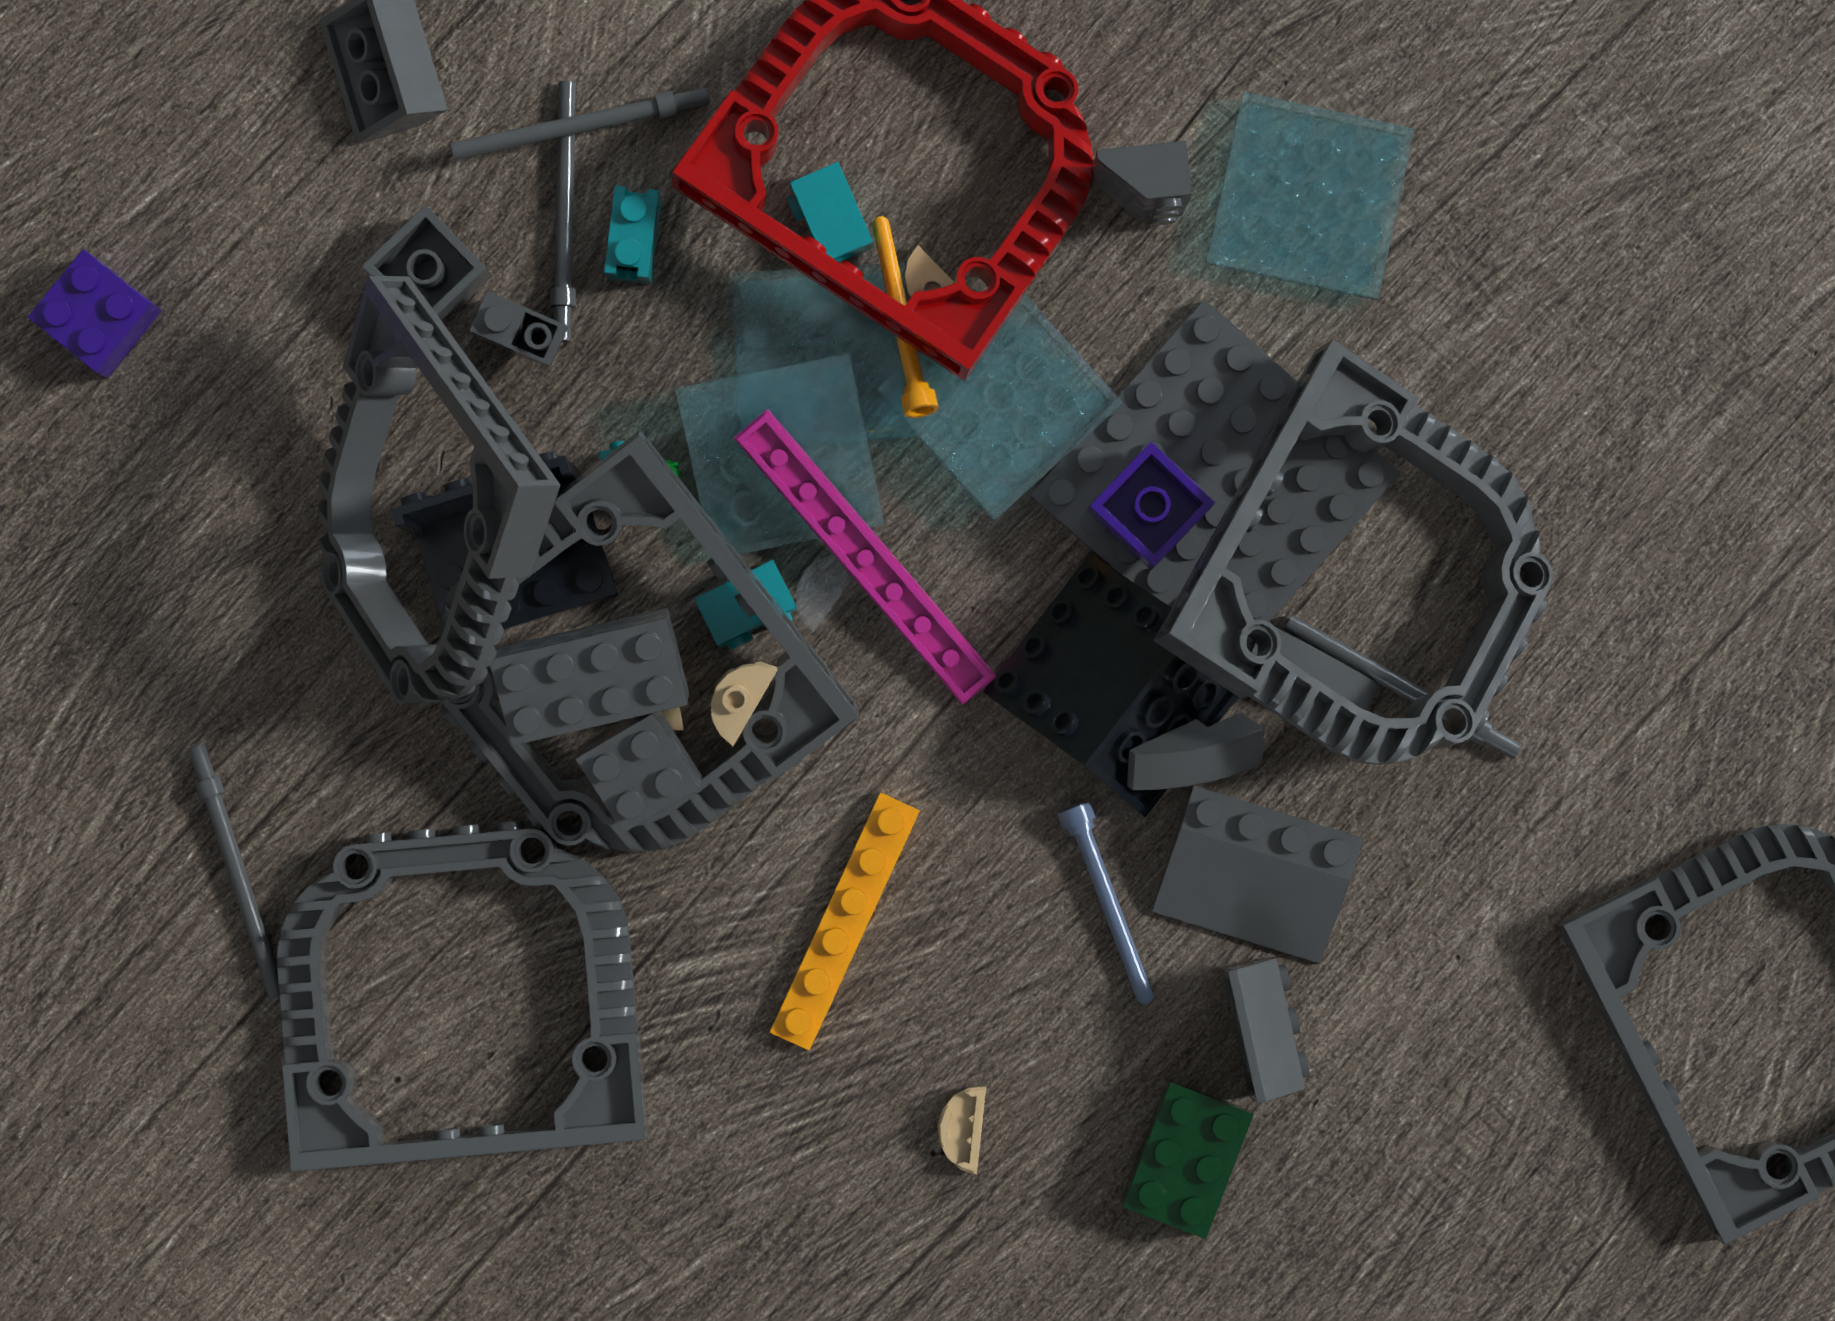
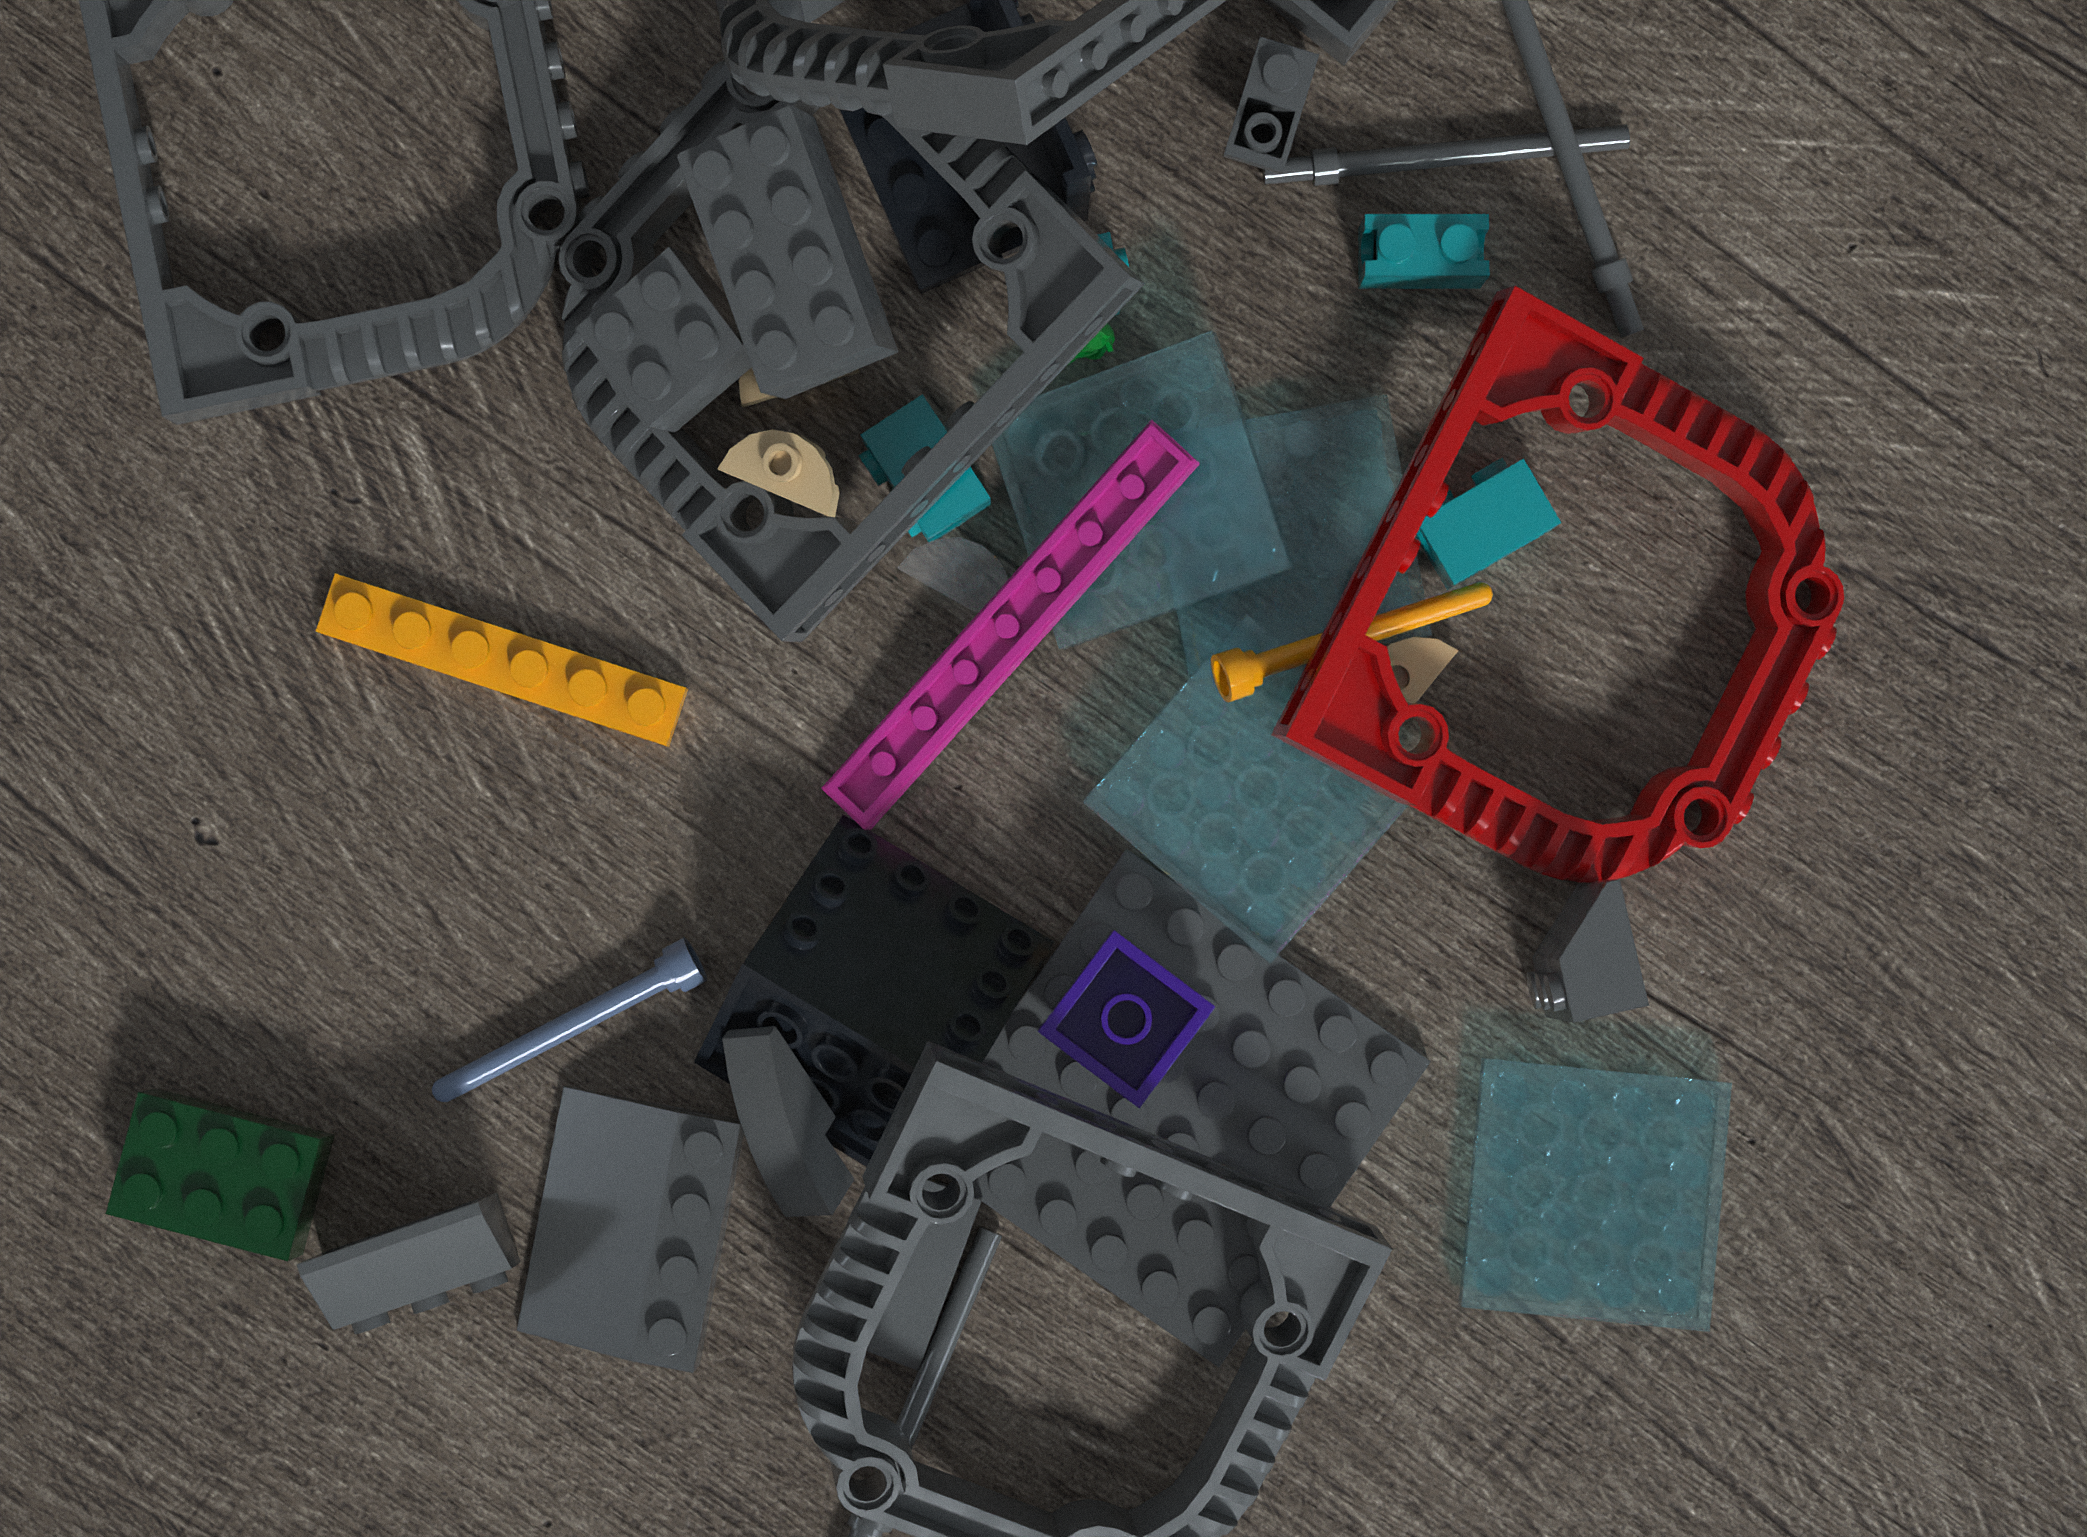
camera: 80 degrees right, 0 degrees up
(962, 1126) = (231, 855): tan plate -> none

